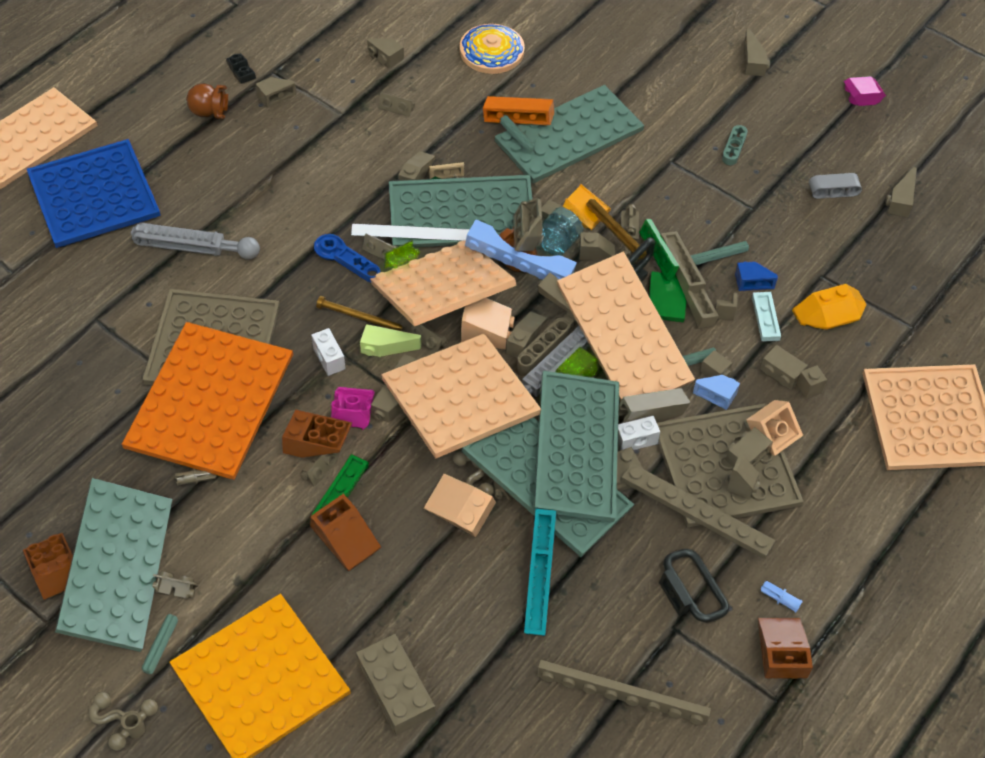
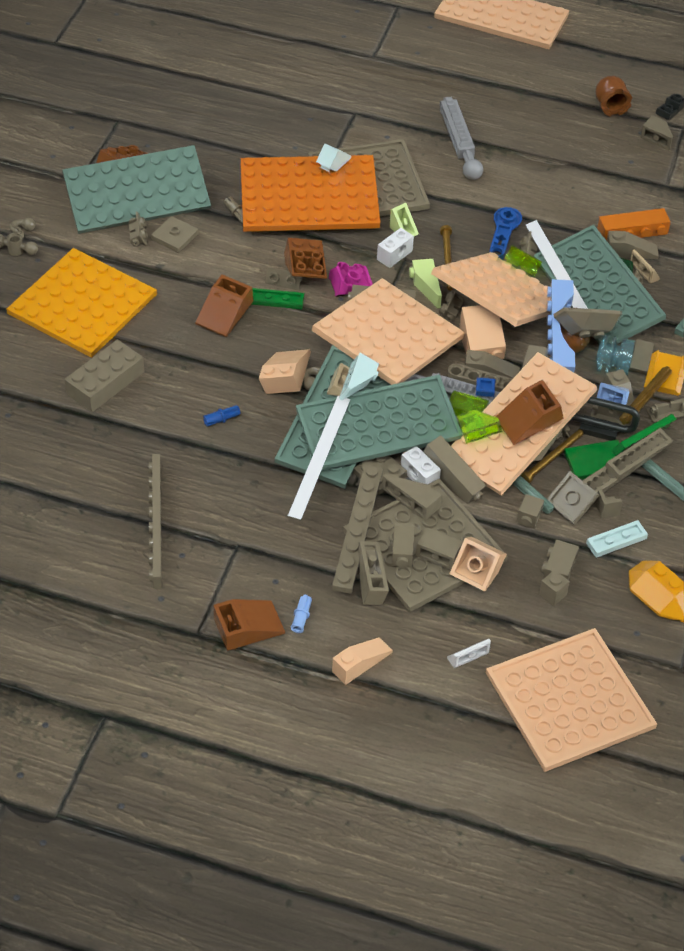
camera: 70 degrees right, 5 degrees down
(93, 193) = (475, 68): blue plate -> none
(159, 644) = (86, 239): sand green axle -> none
(184, 355) = (332, 158): none -> light aqua slope
(197, 549) = (175, 234): none -> dark tan plate
(295, 333) = (401, 218): none -> yellowish green slope
(390, 156) = (638, 223): none -> orange brick
(496, 587) = (221, 415): none -> blue axle
(518, 456) = (338, 380): none -> tan slope
(528, 437) = (359, 375): none -> light aqua slope
(540, 572) = (245, 433): teal slope -> none
(565, 342) = (485, 387): none -> blue tile
(605, 511) = (318, 458): none -> white sticker
(612, 246) = (613, 393): none -> light blue slope
(621, 364) = (478, 425): none -> clear neon green slope
(635, 314) = (530, 412): none -> dark orange slope
(680, 596) = (271, 535): pearl dark grey bar -> none
(681, 446) = (414, 495): none -> dark tan slope
(714, 328) = (572, 497): none -> dark tan plate
(717, 390) = (505, 519): light blue slope -> none
(754, 277) = (658, 516): blue slope -> none
(765, 518) = (372, 574): none -> dark tan slope
(851, 564) = (359, 658): none -> light nougat slope
(862, 473) = (469, 653): none -> white slope

